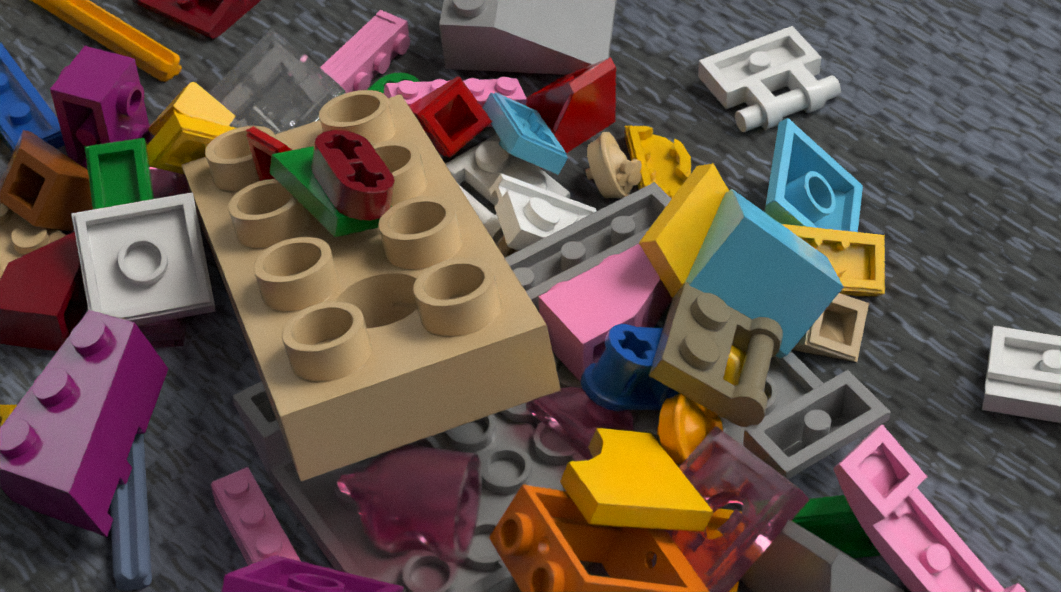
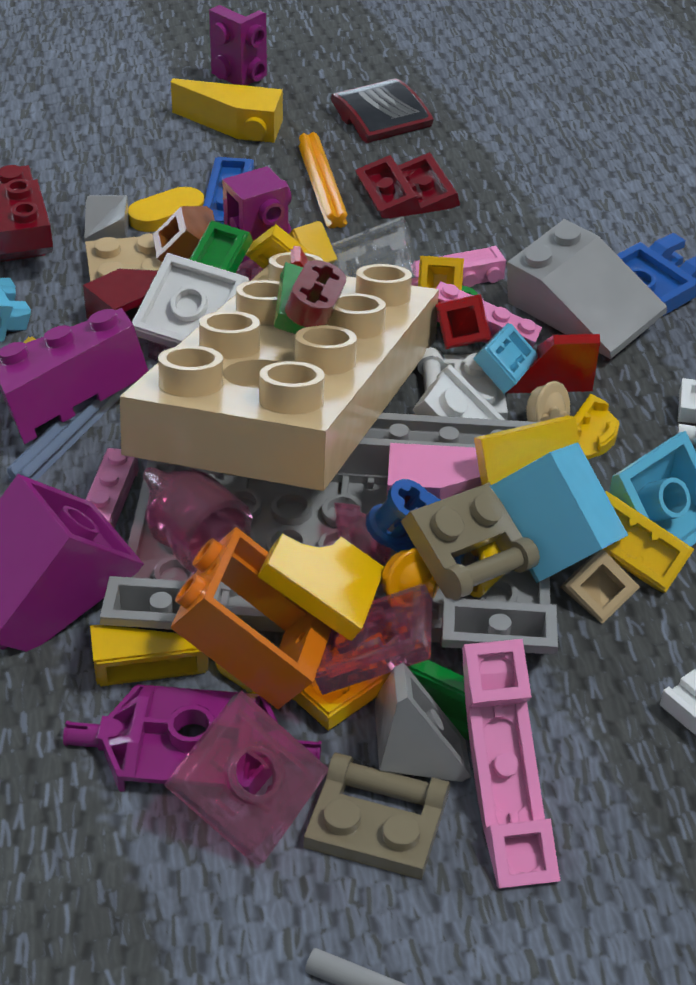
camera: 35 degrees right, 5 degrees down
(371, 70) = (438, 269): none -> yellow slope

